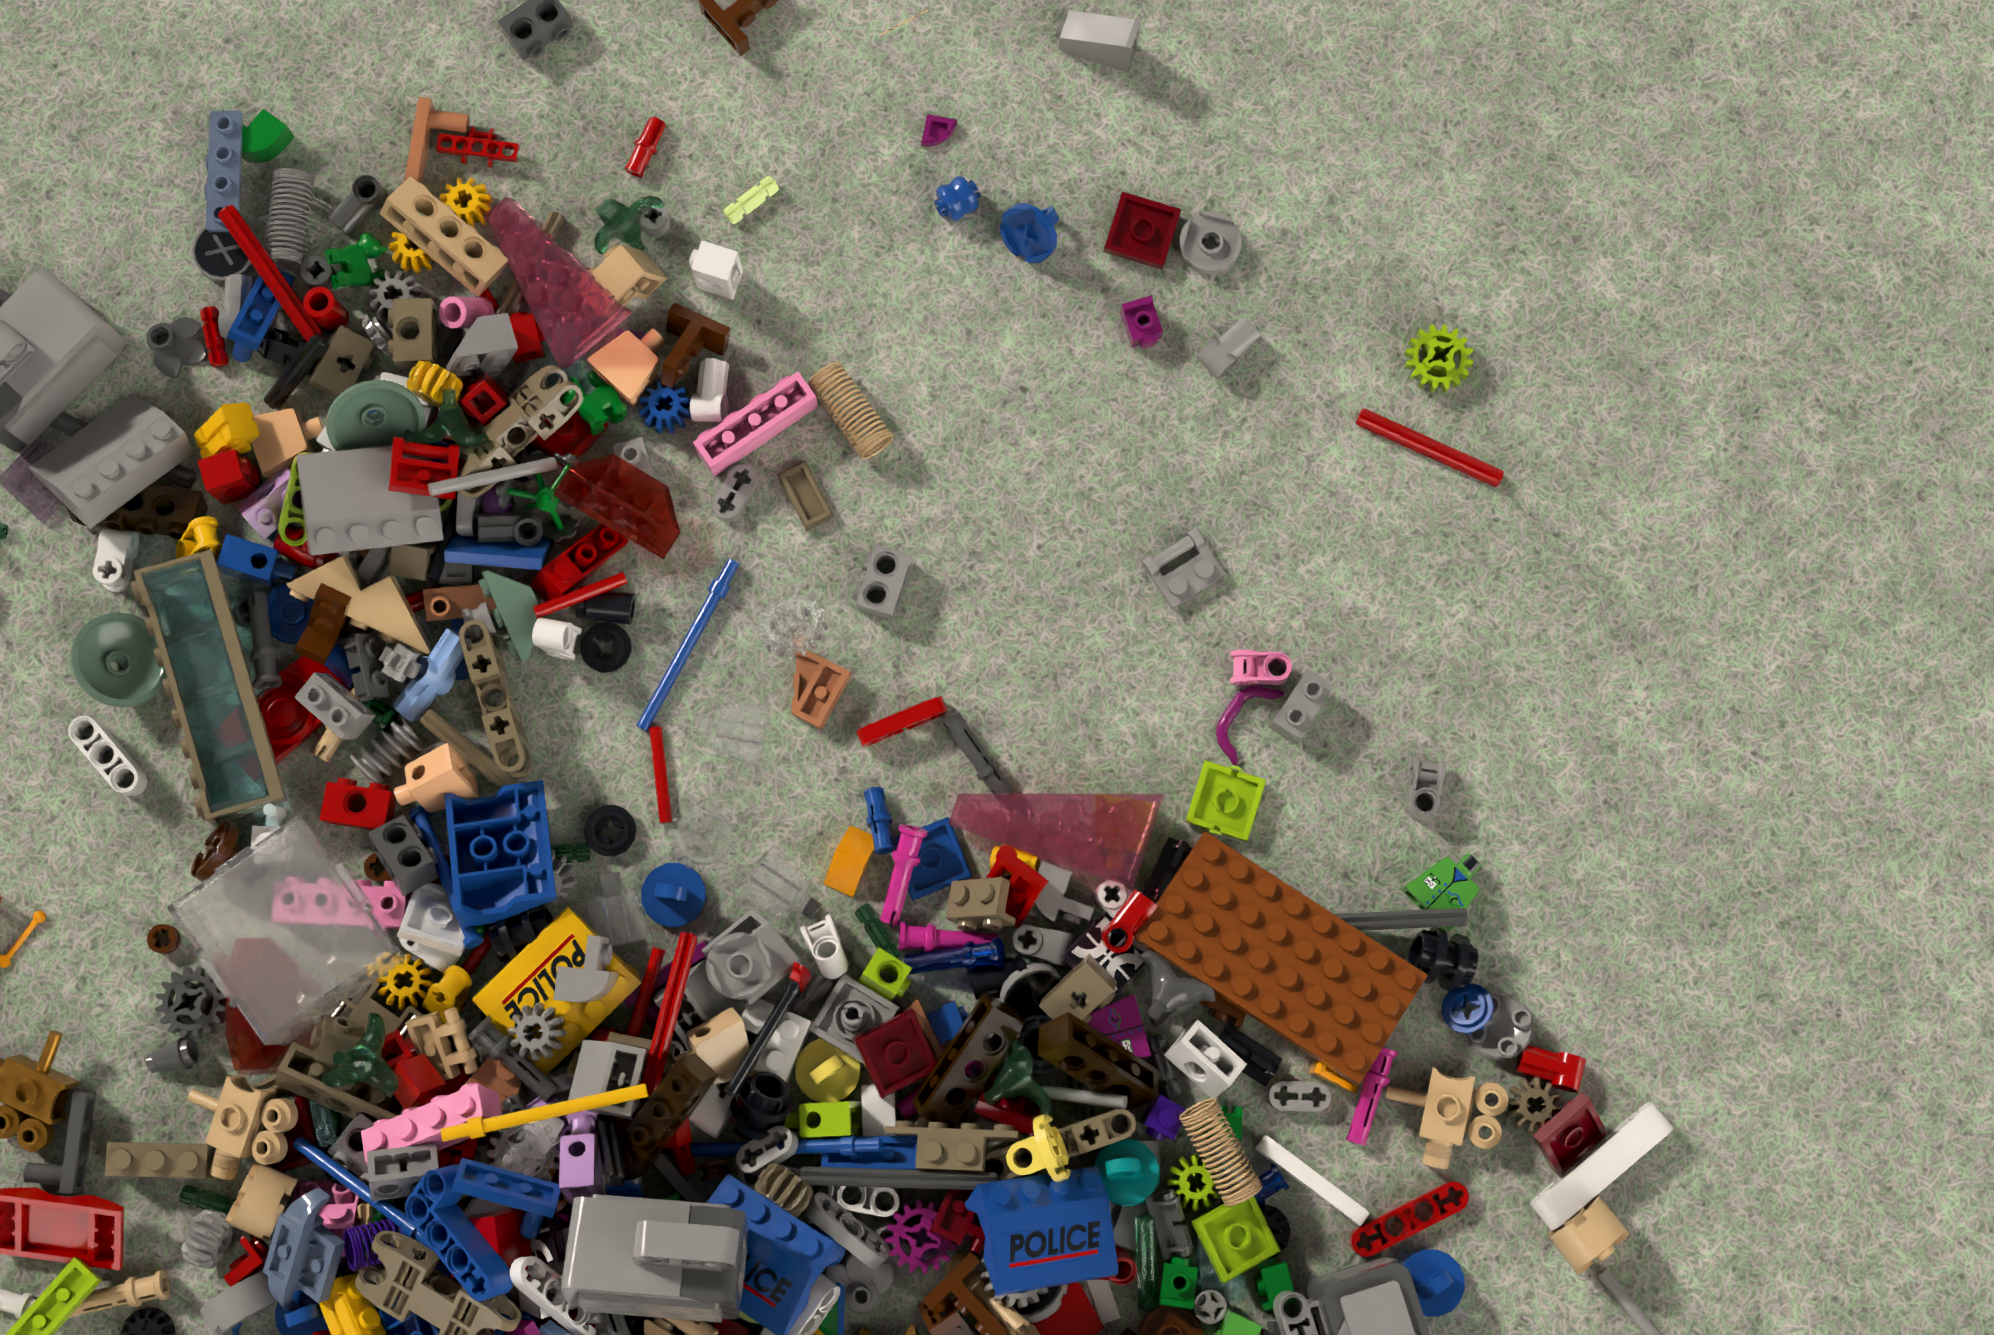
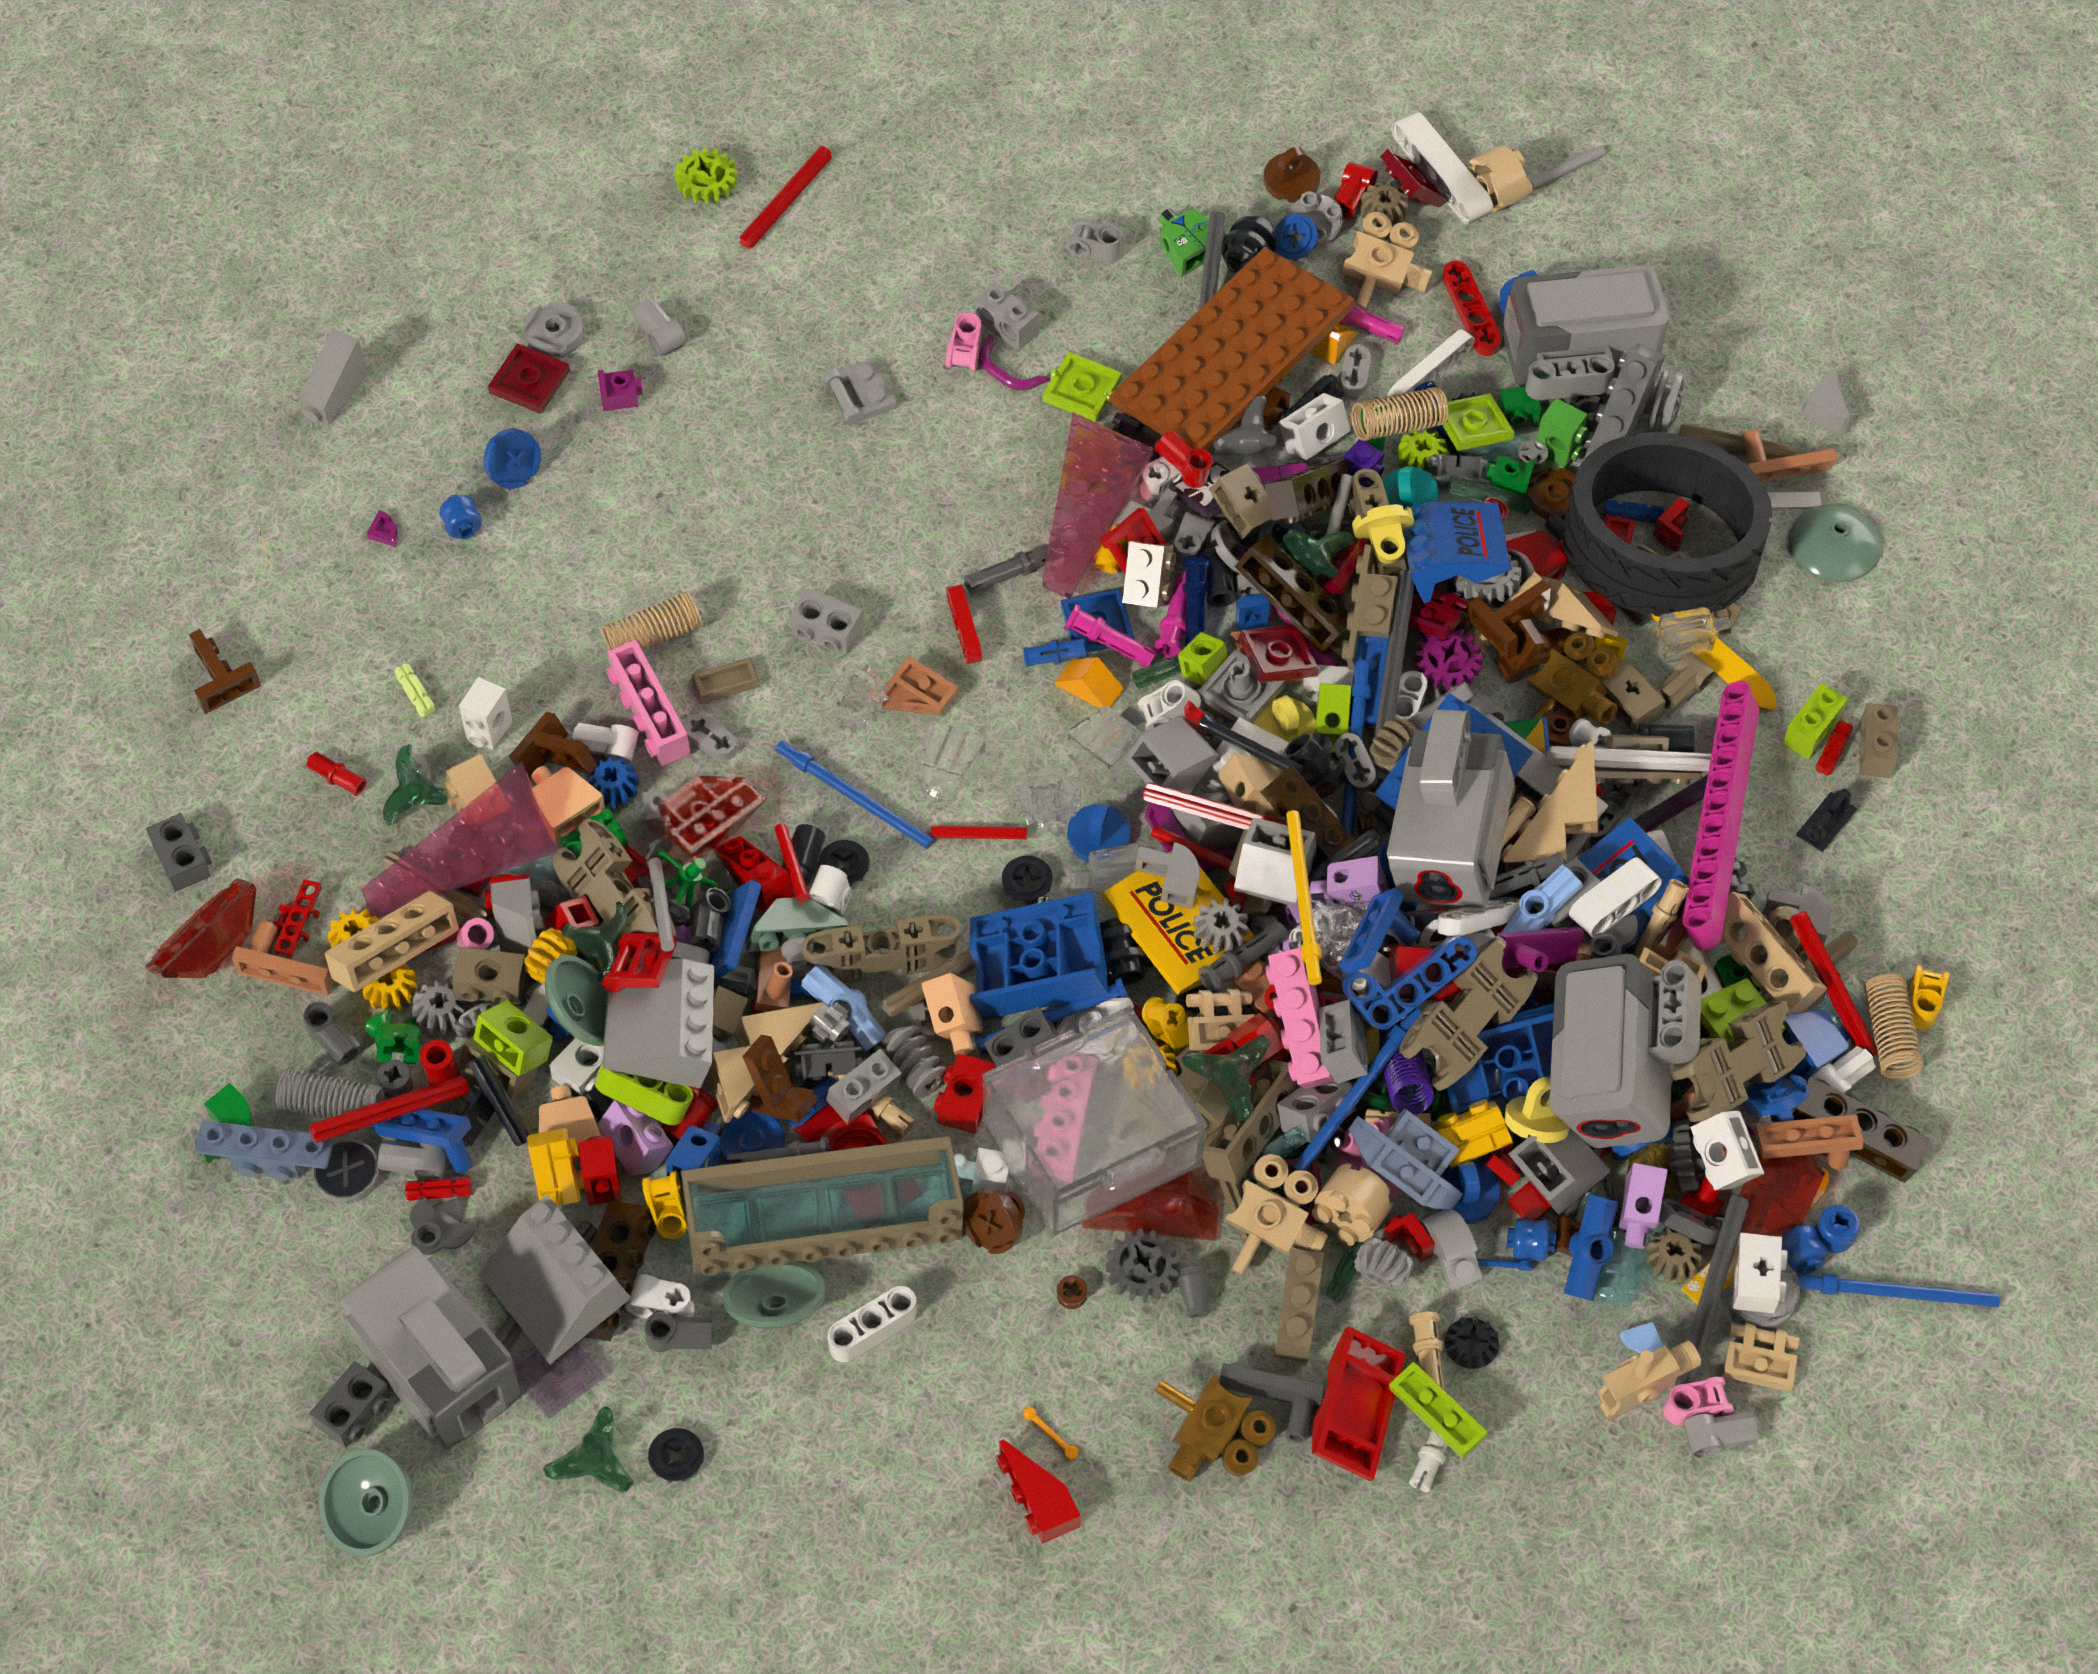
camera: 80 degrees left, 20 degrees down
(83, 586) = (683, 1332): none -> dark grey piece
(356, 350) = (512, 1038): none -> lime brick
(440, 66) = (208, 934): none -> clear red wedge
(739, 966) = (1181, 755): light grey tile -> none
(1559, 995) = (1291, 175): none -> reddish brown tile

